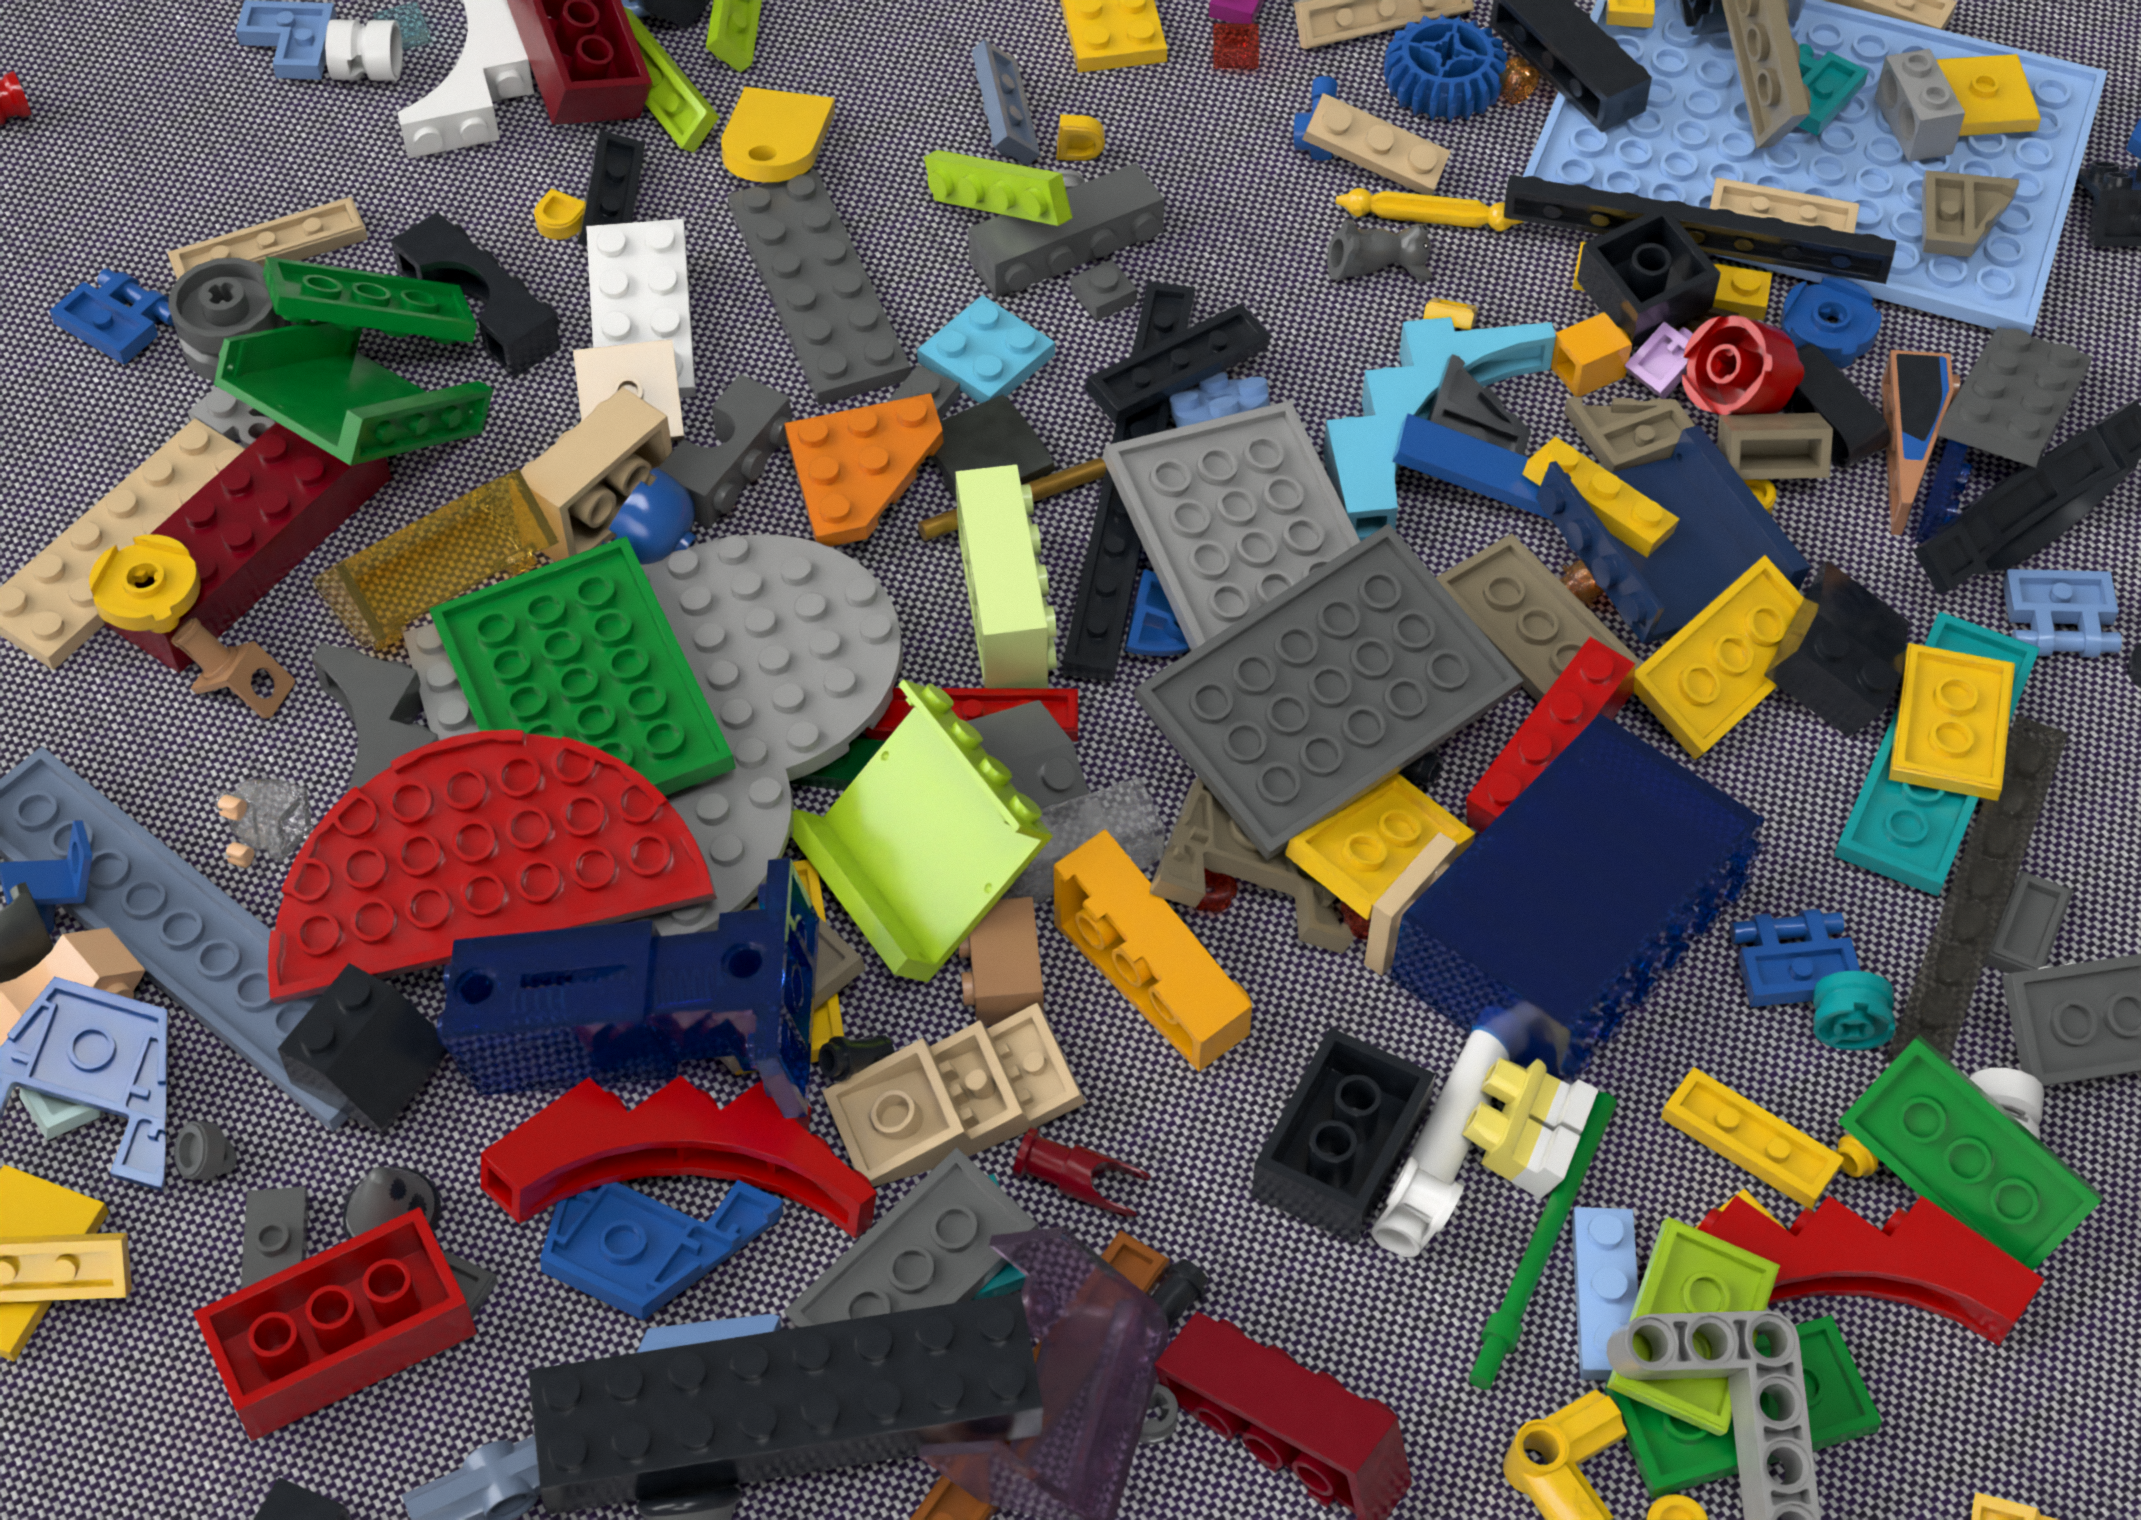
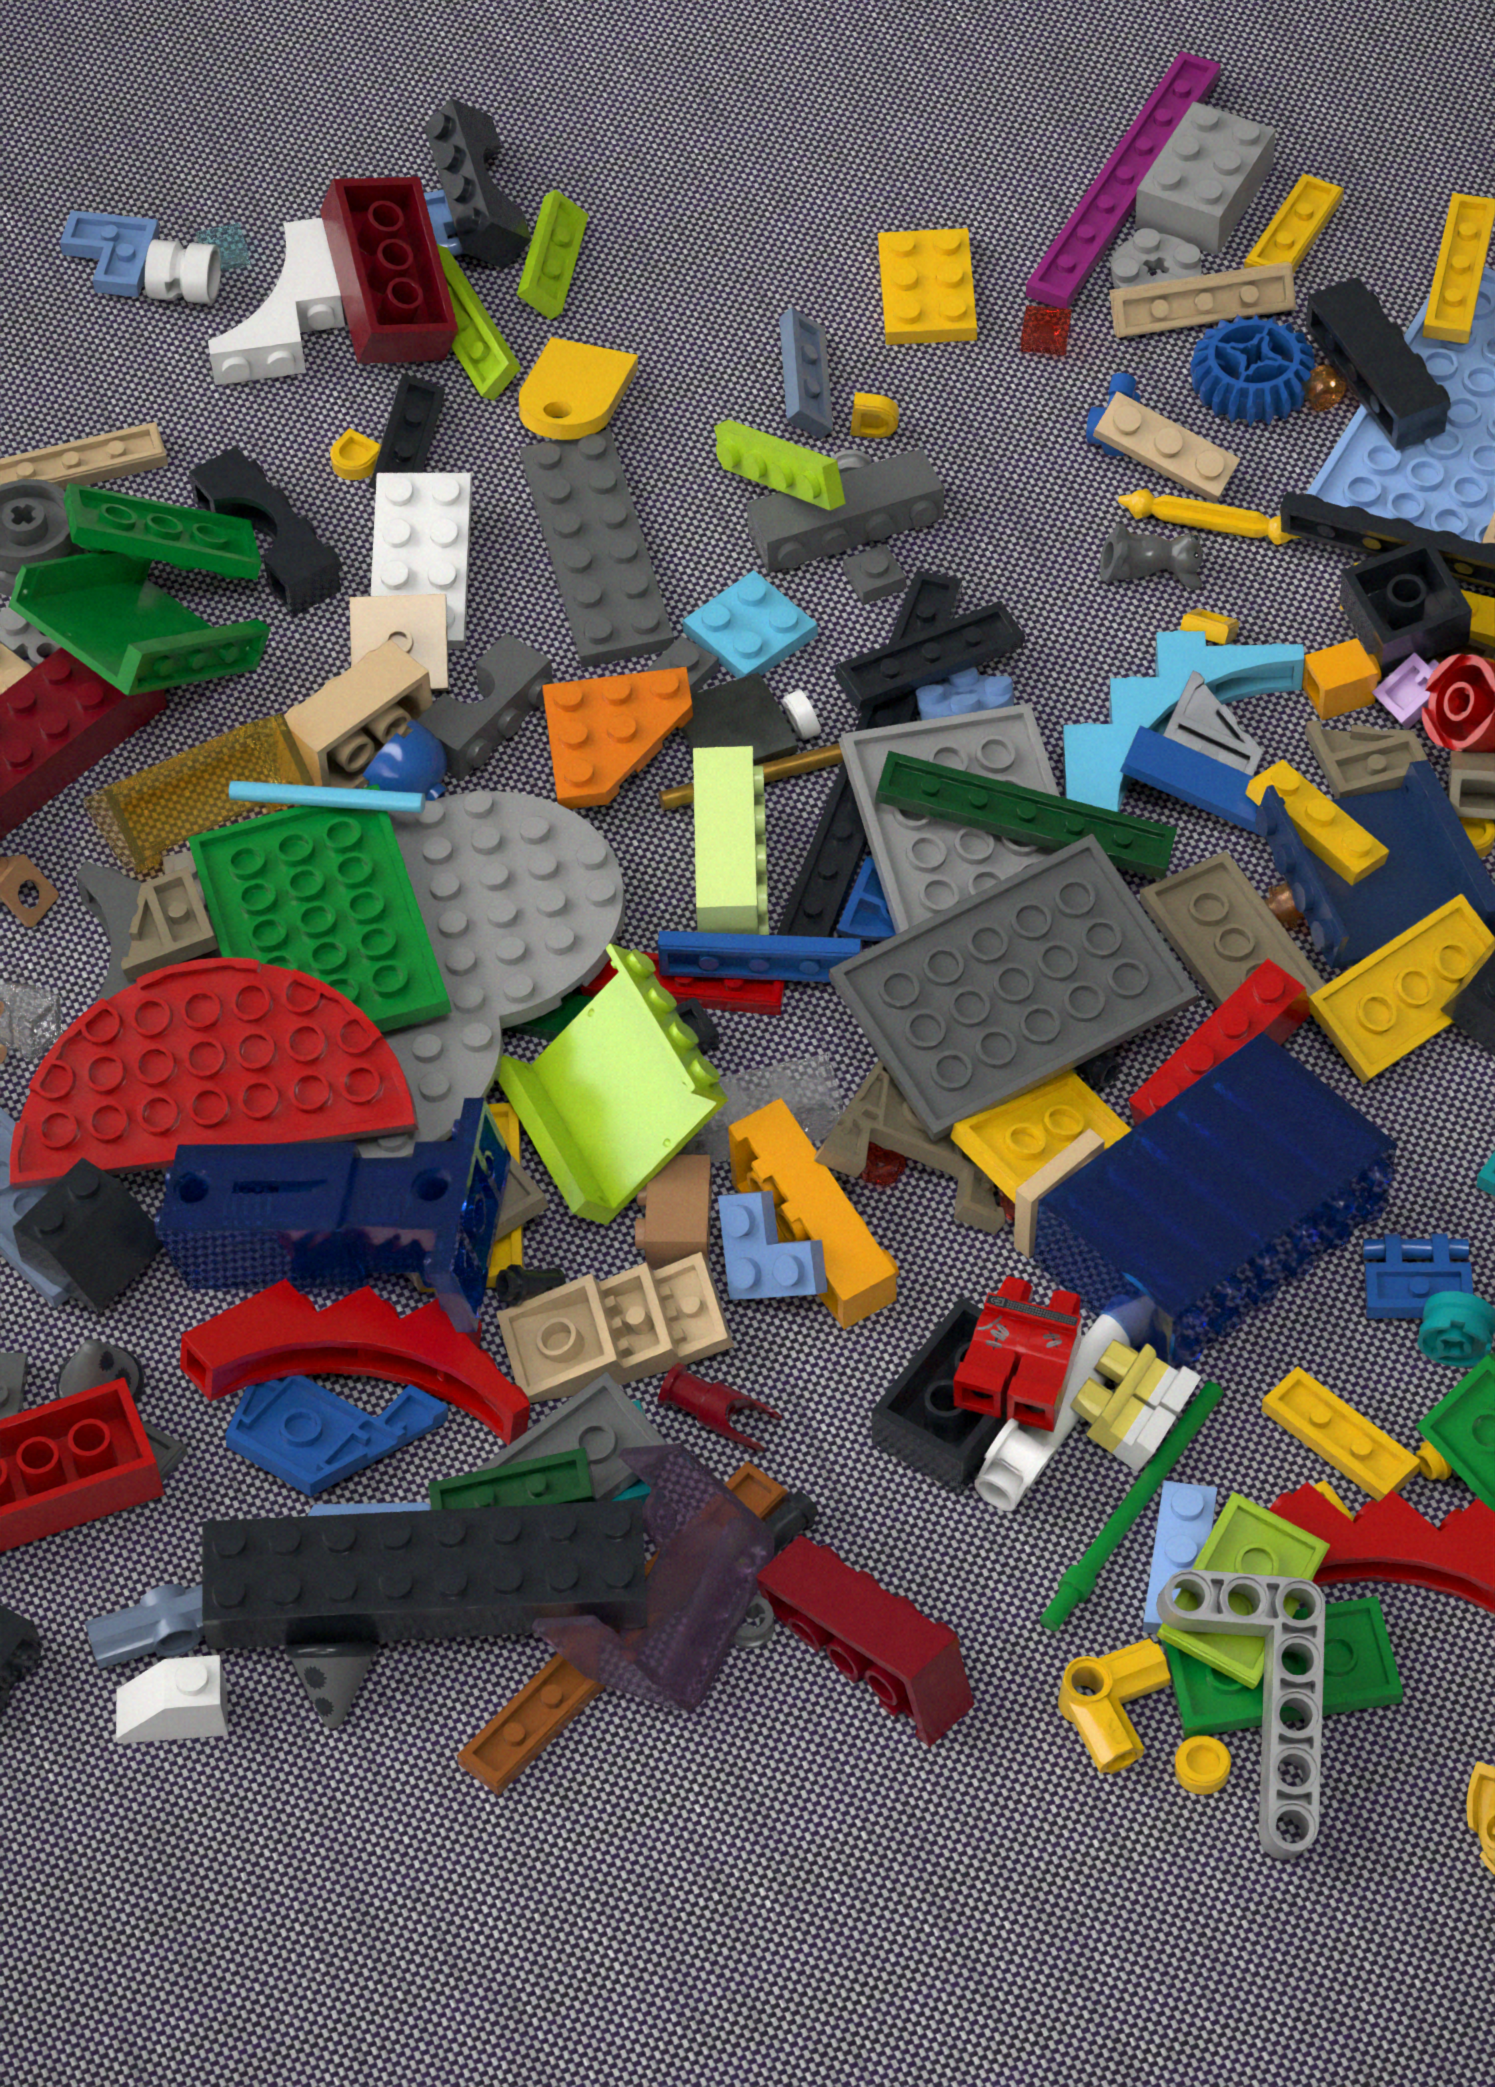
camera: 10 degrees right, 0 degrees up
(417, 703) = (167, 925): none -> dark tan wing
(574, 553) = (327, 796): none -> medium azure bar
(889, 1285) = (537, 1481): none -> dark green plate
(1034, 752) = (727, 1022): dark grey slope -> none
(1048, 680) = (752, 955): none -> blue tile
(1054, 433) = (801, 715): none -> white tile
(1099, 1007) = (754, 1258): none -> medium blue plate
(1302, 510) = (1022, 813): none -> dark green plate
(1413, 1066) = (1025, 1338): none -> red hips

